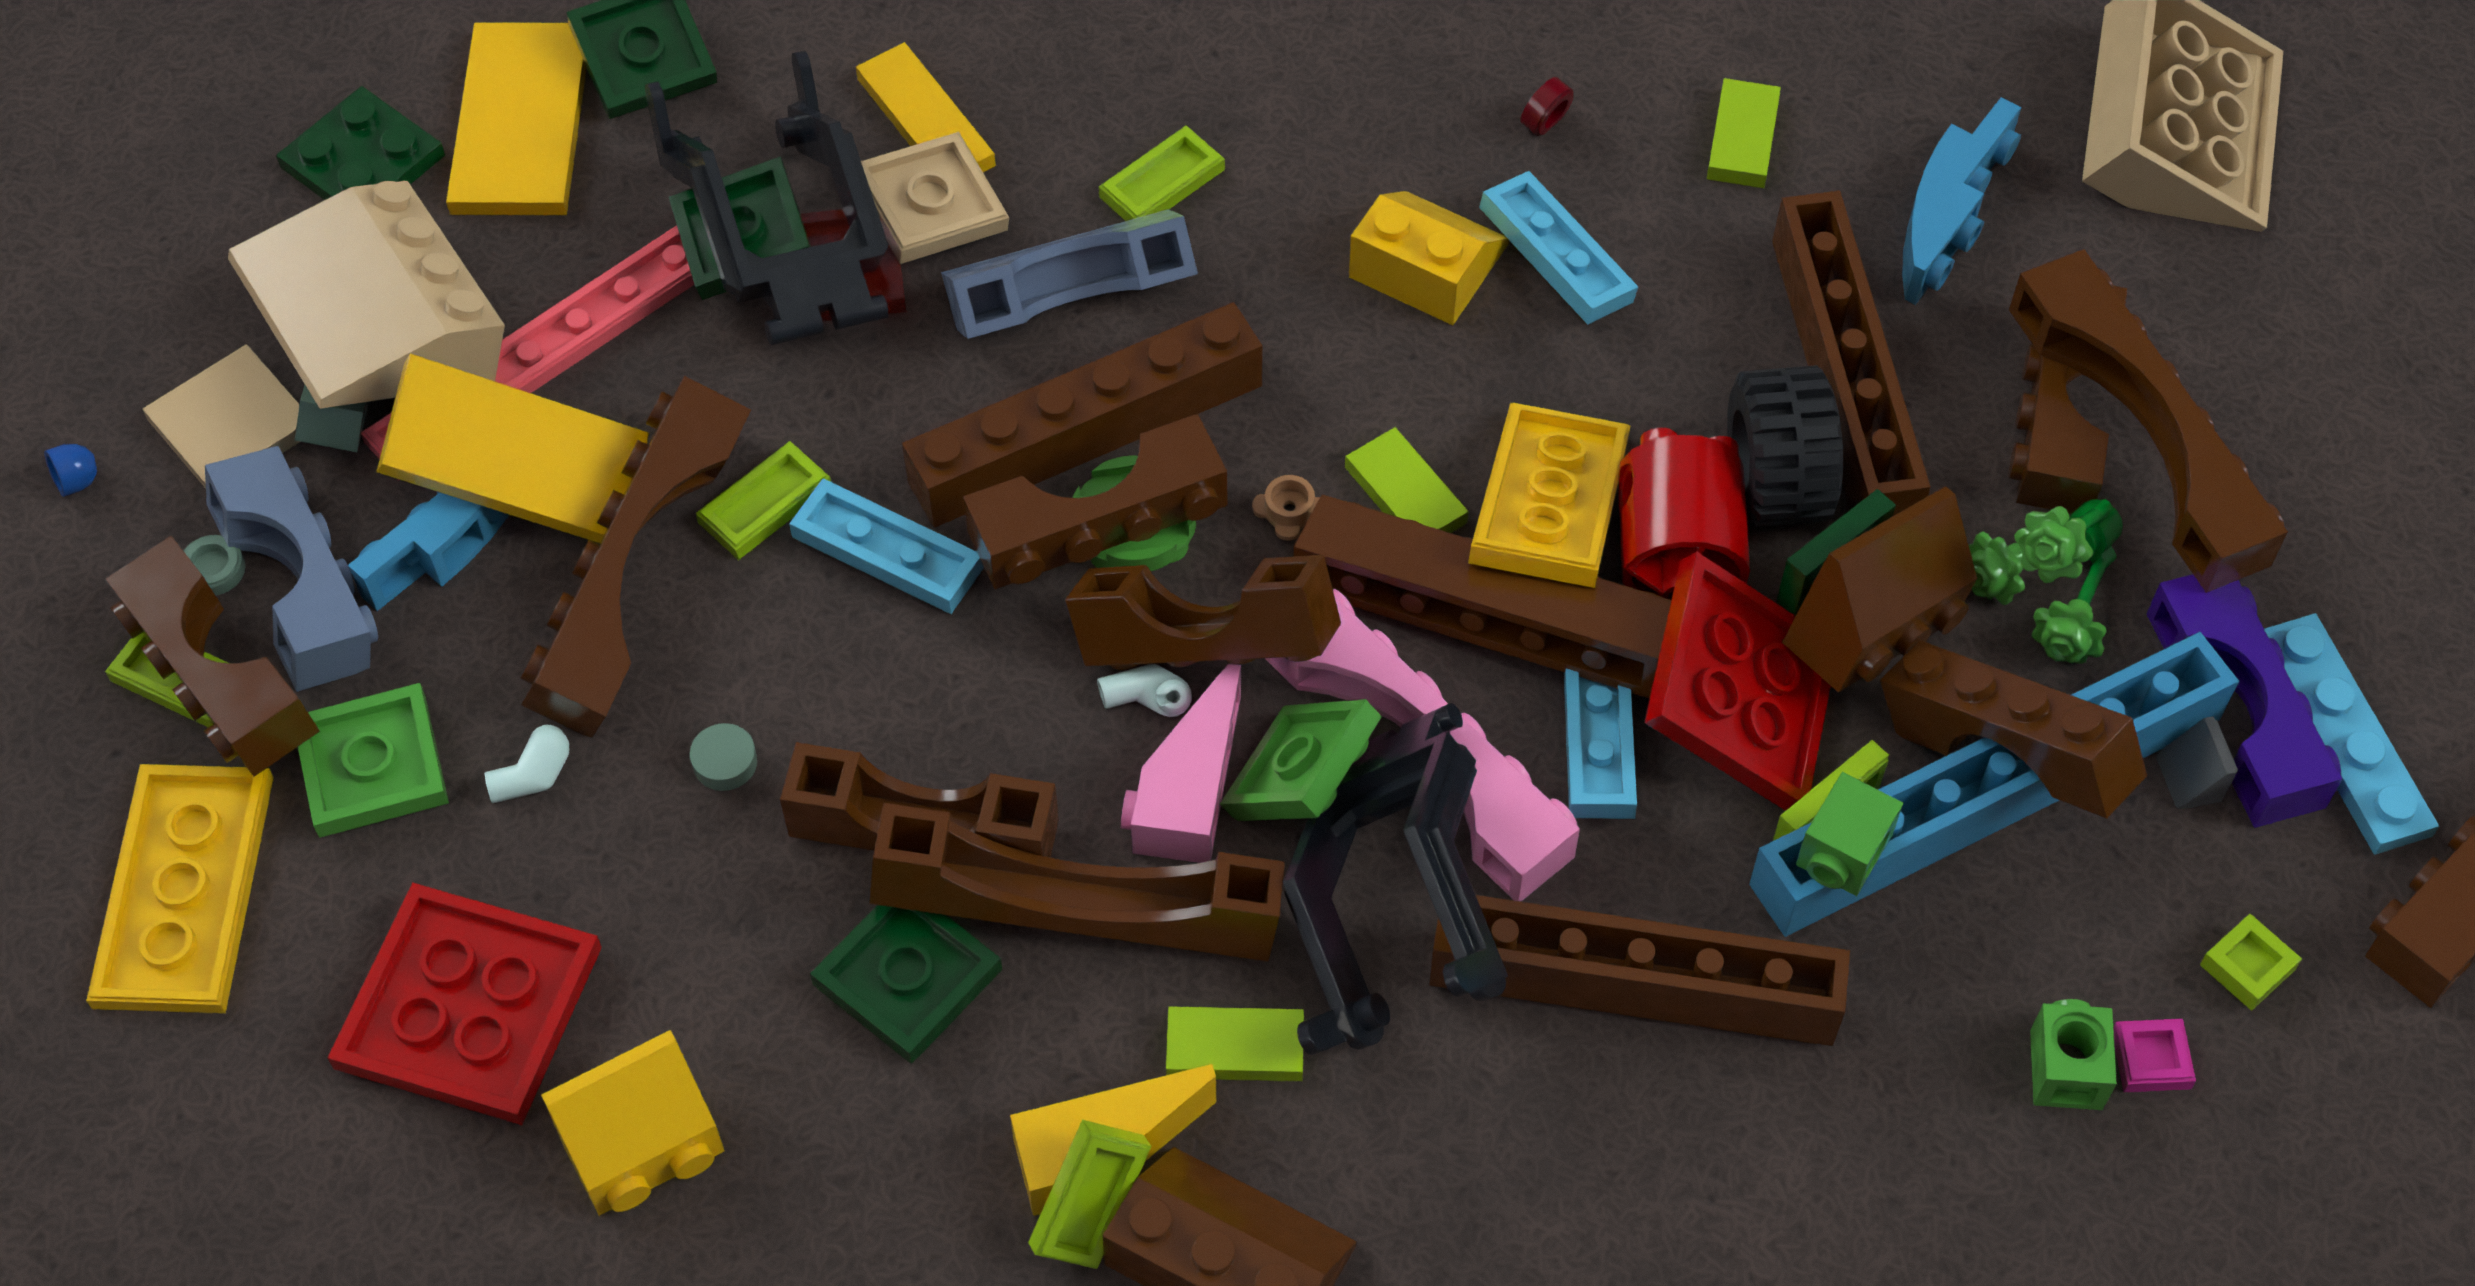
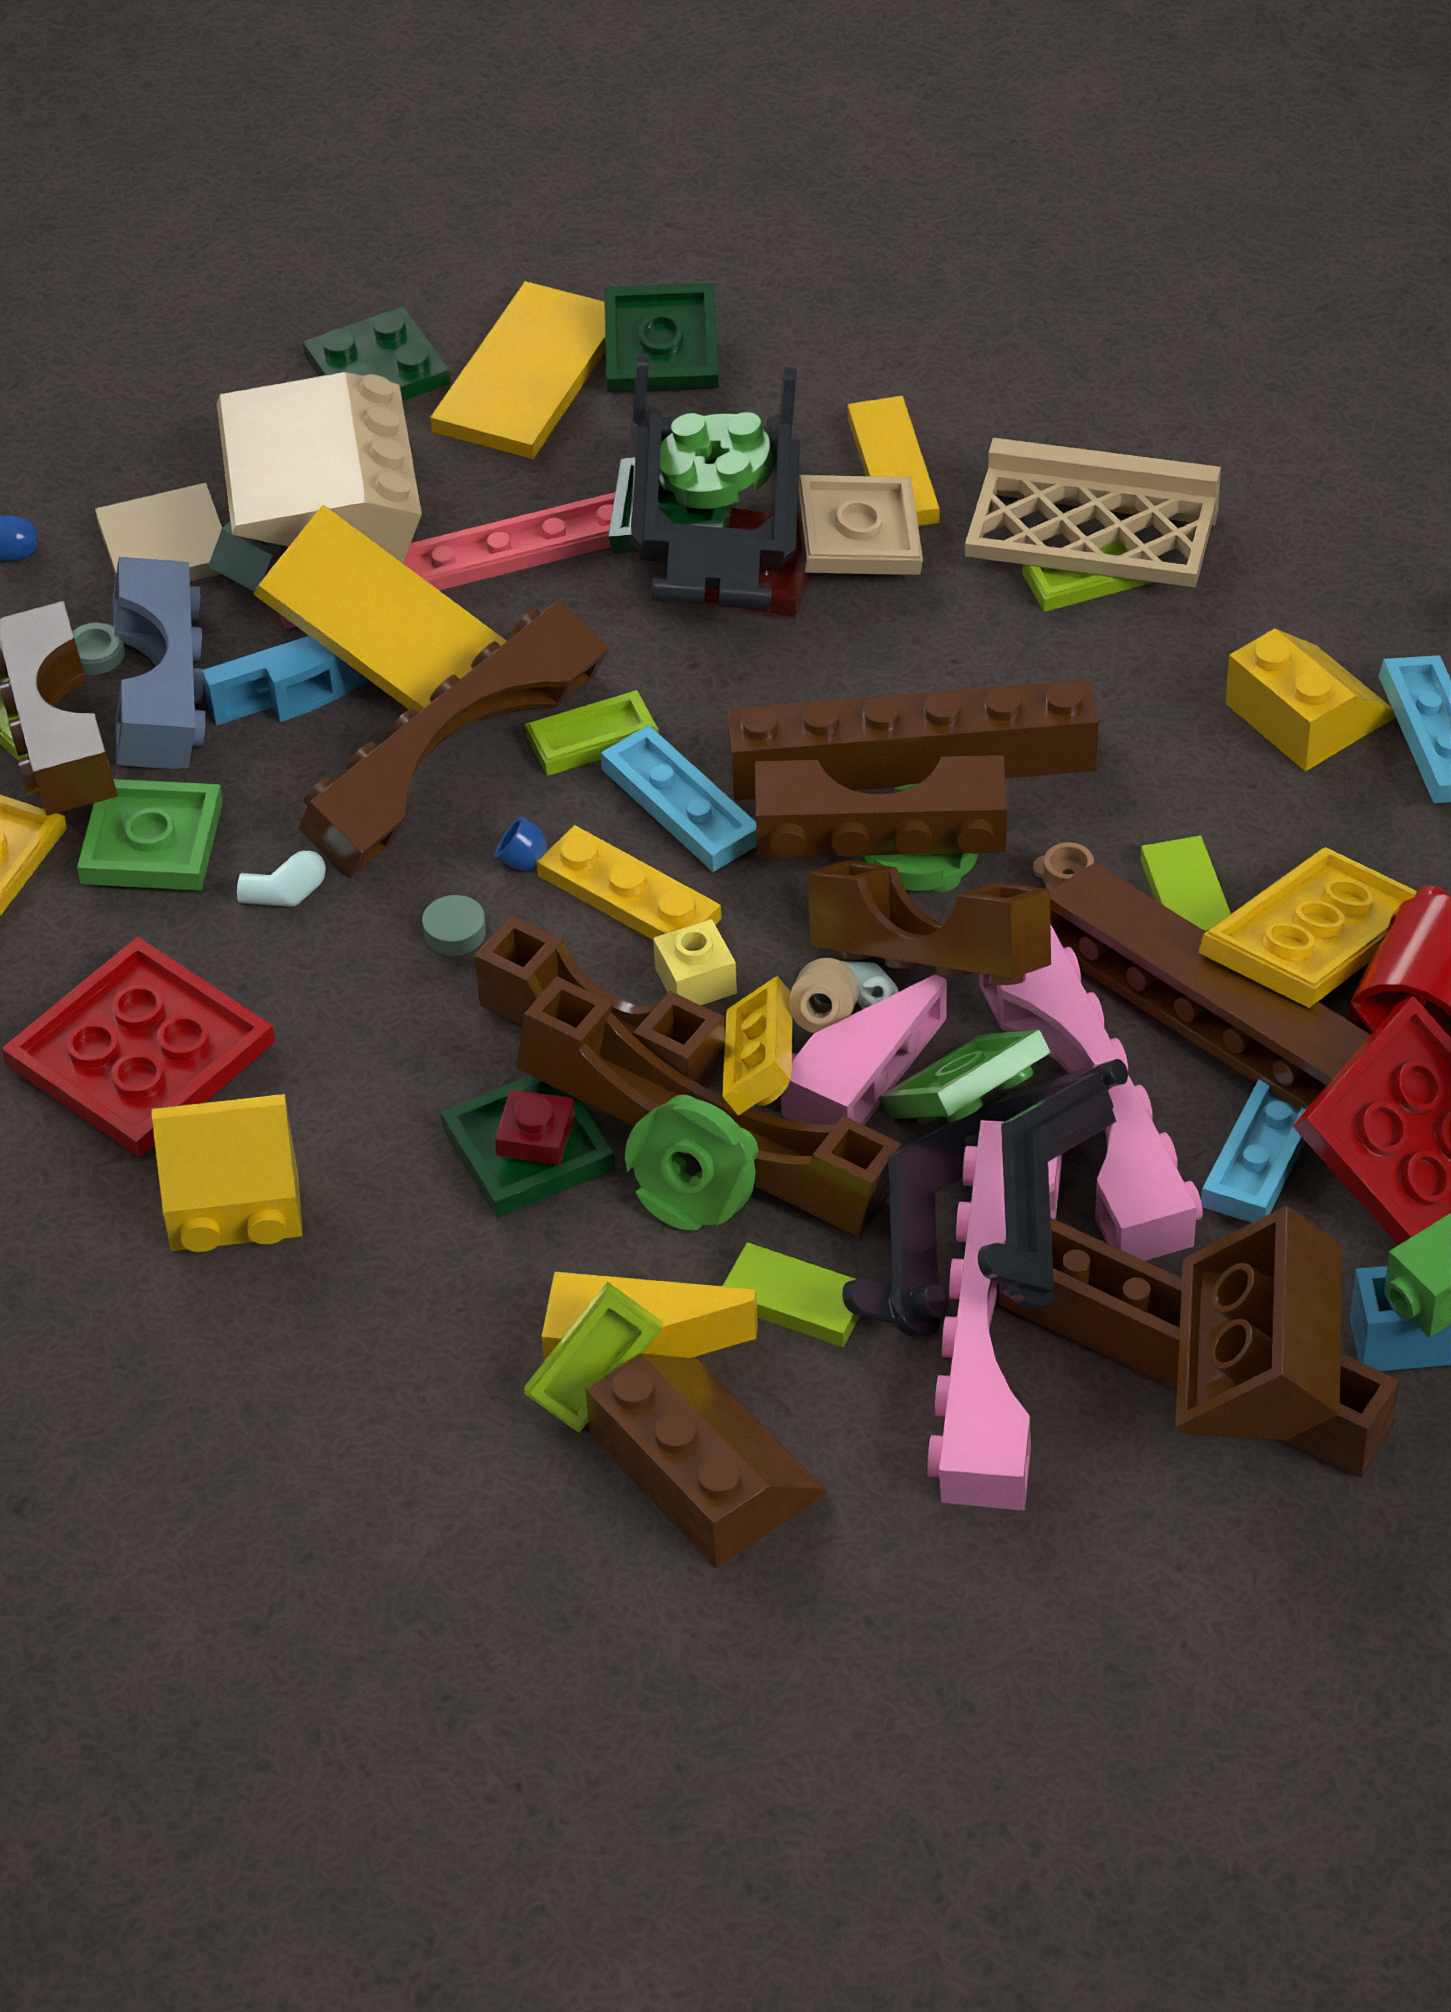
camera: 25 degrees right, 10 degrees down
(753, 649) = (521, 845): none -> blue hinge
(771, 146) = (741, 455): none -> bright green plate
(878, 661) = (623, 885): none -> yellow plate
(915, 960) = (535, 1127): none -> dark red plate
(978, 738) = (696, 963): none -> light yellow plate
(1092, 263) = (953, 619): sand blue arch -> none
(1095, 799) = (758, 1047): none -> yellow plate
(1096, 918) = (714, 1140): none -> bright green plate
(1128, 719) = (828, 978): none -> tan brick
(1141, 84) = (1096, 485): none -> tan fence
(1486, 1129) = (986, 1429): none -> bright pink arch
(1716, 953) = (1261, 1331): none -> reddish brown slope

